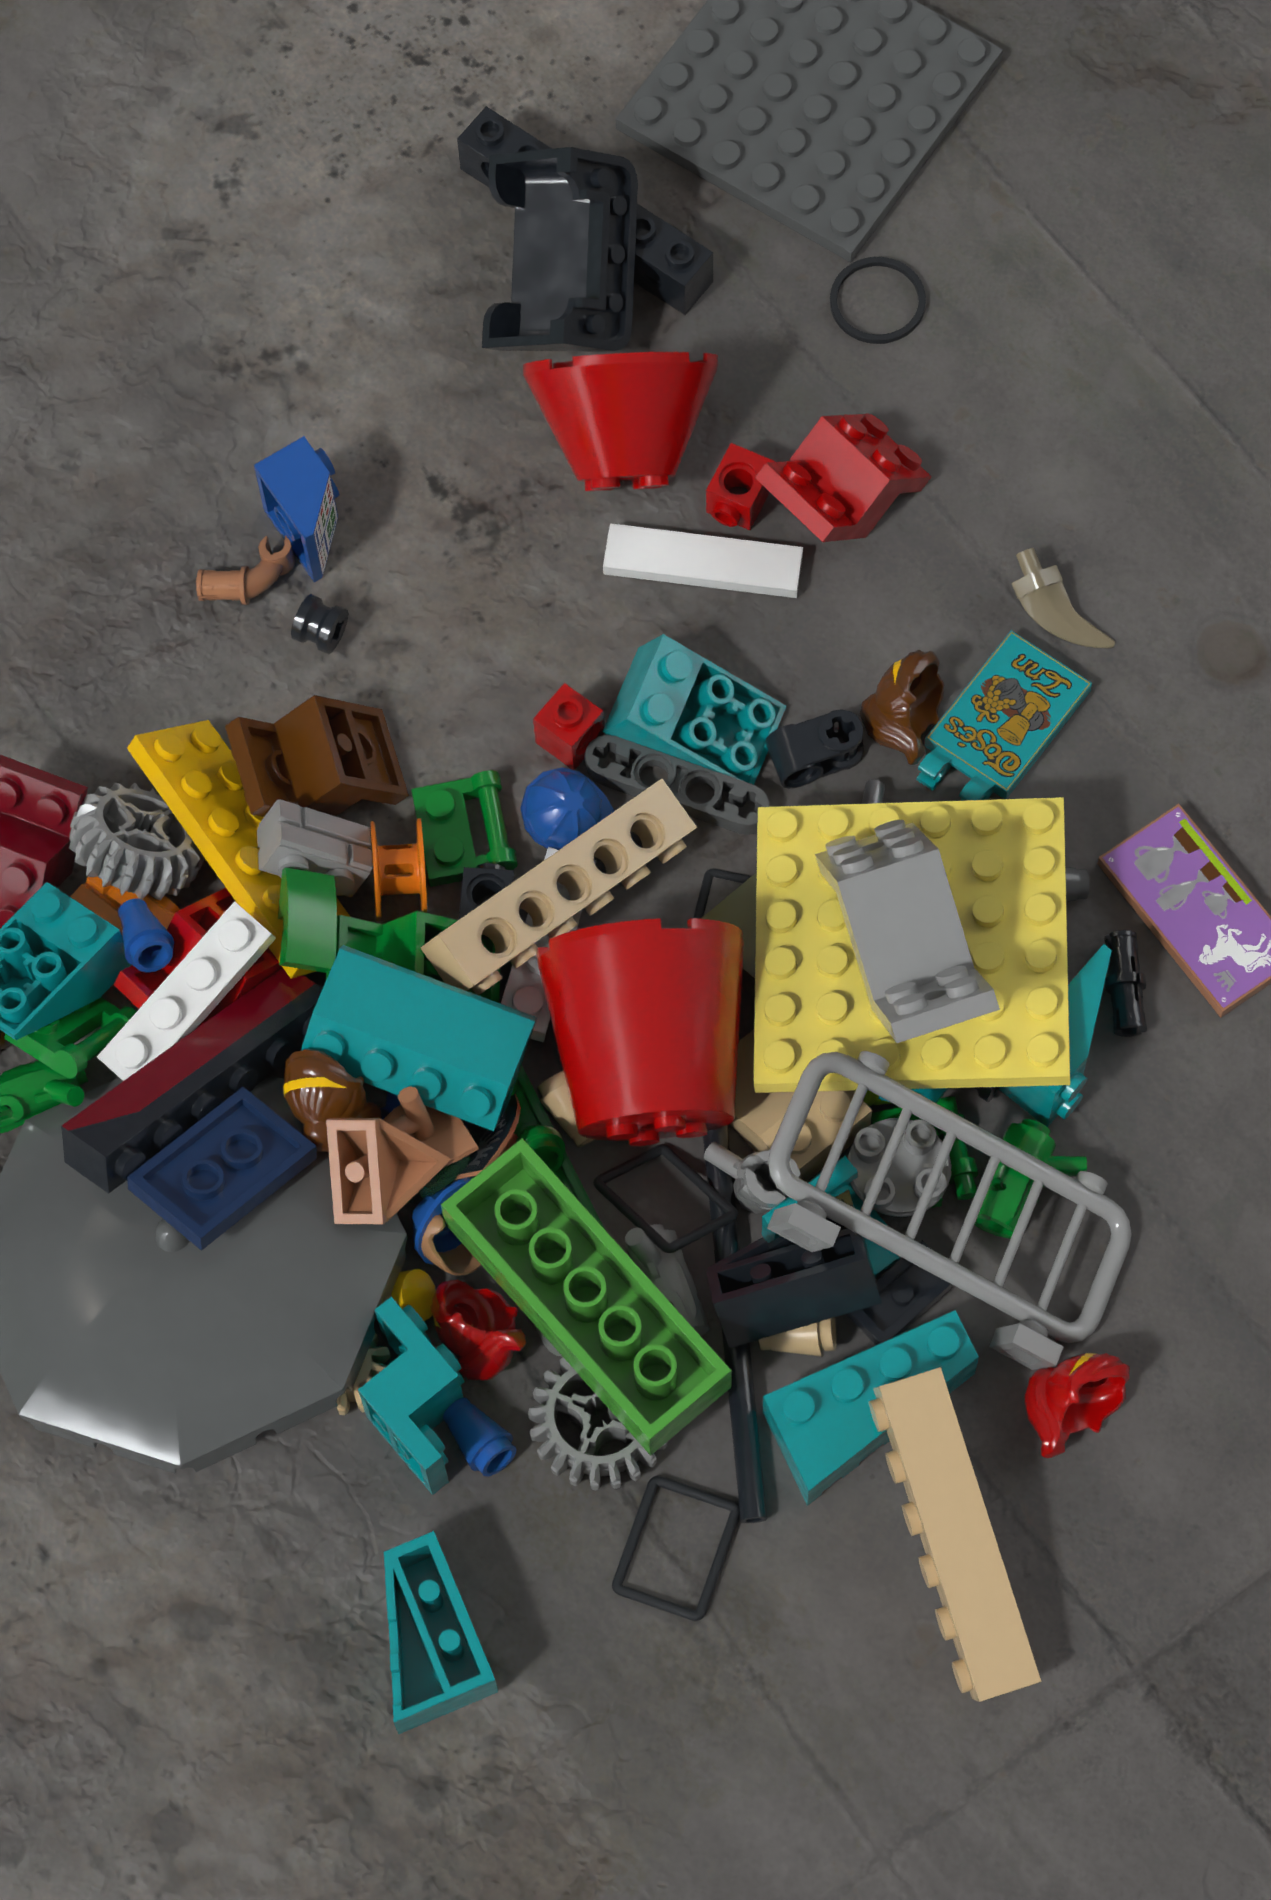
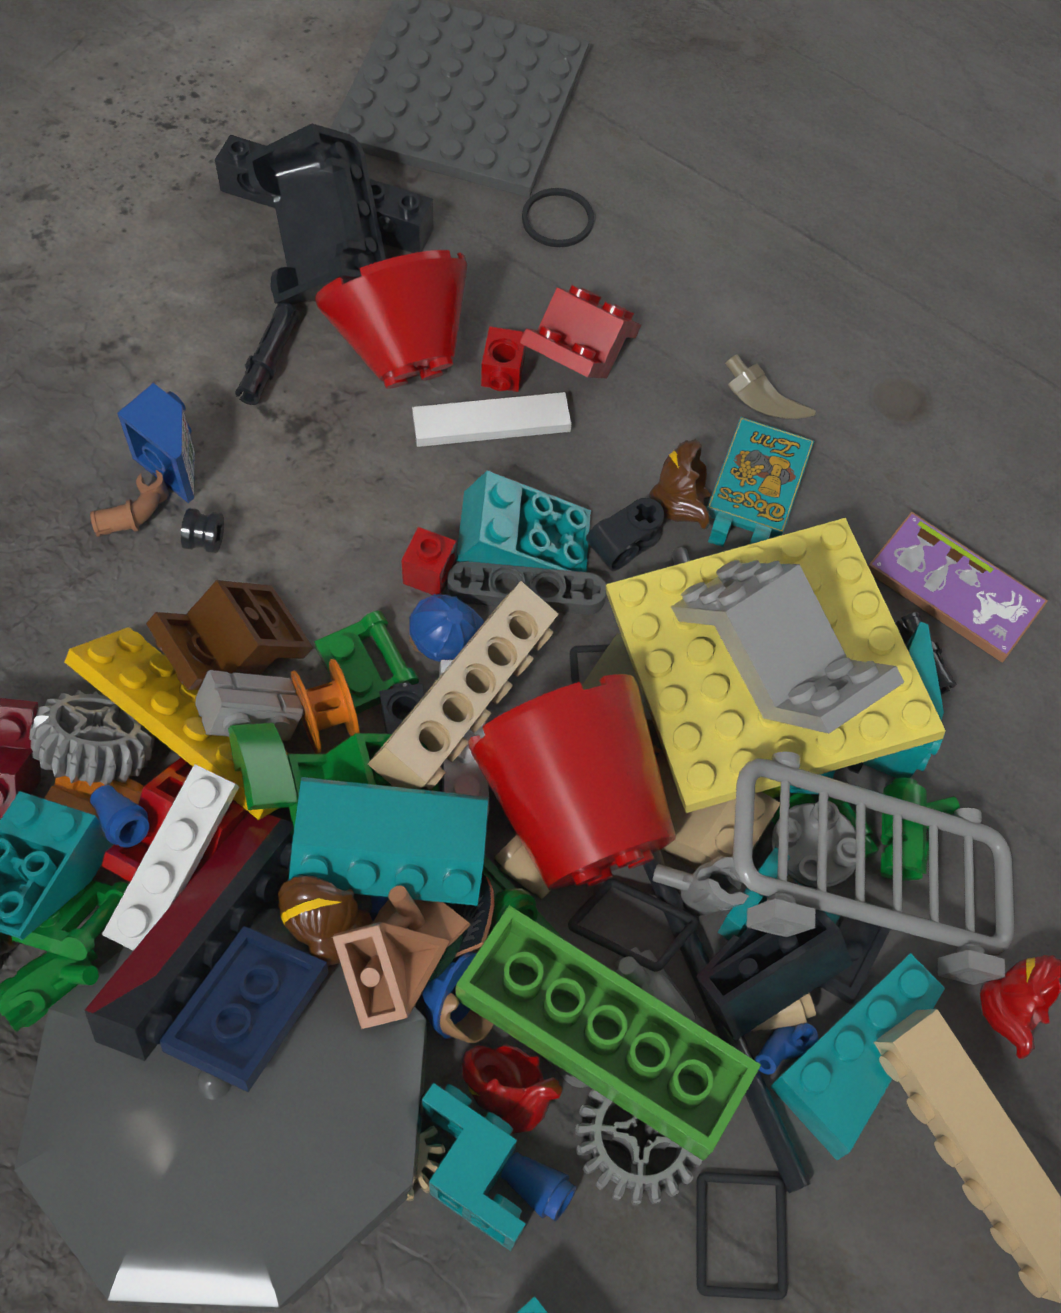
camera: 25 degrees left, 5 degrees down
(415, 1289) = (443, 1068): yellow tile -> none
(446, 425) = (262, 364): none -> black pin
(785, 1371) = (785, 1044): none -> blue arm

